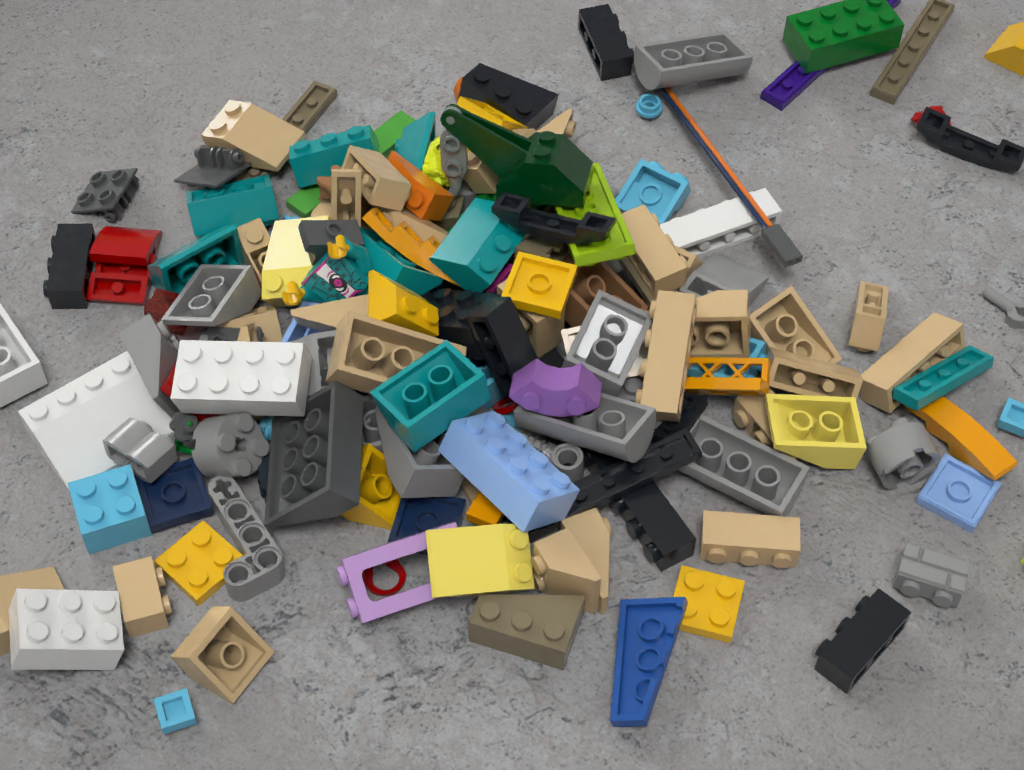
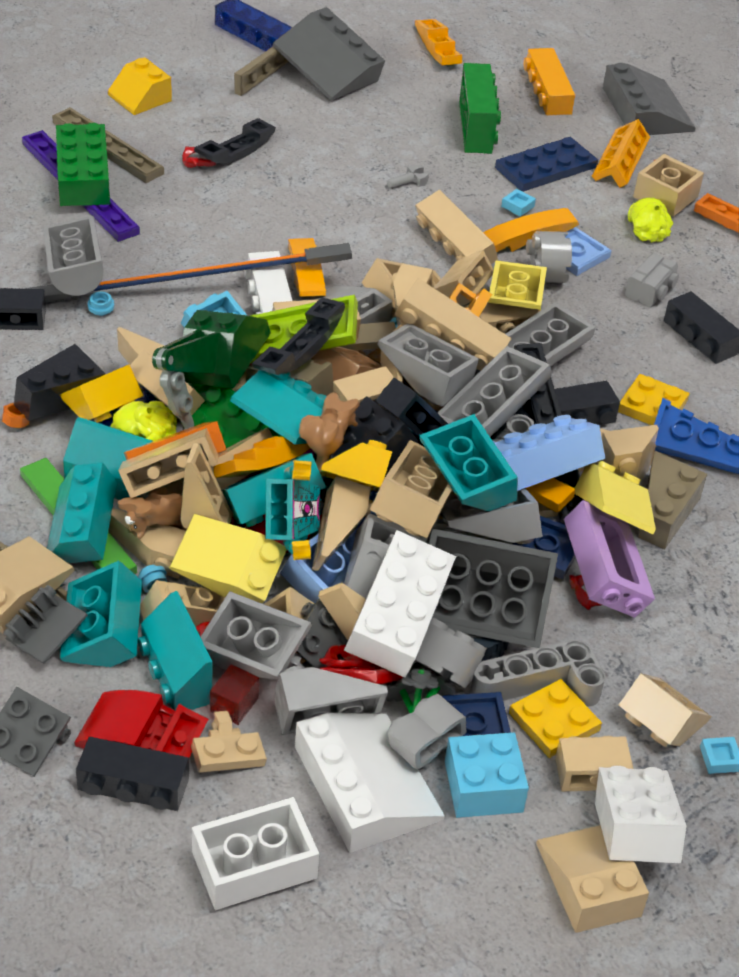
camera: 80 degrees left, 10 degrees down
(111, 318) = (227, 747): none -> tan hinge
(318, 232) = (247, 507): dark grey brick -> none
(444, 273) = (326, 432): none -> medium nougat animal
(540, 284) = (367, 369): yellow plate -> none
(556, 390) = (475, 393): medium lavender brick -> none
(749, 539) = (605, 355): tan brick -> none
(754, 251) = (307, 278): none -> light orange slope
(869, 317) = (402, 242): tan slope -> none
(942, 377) = (487, 222): teal plate -> none

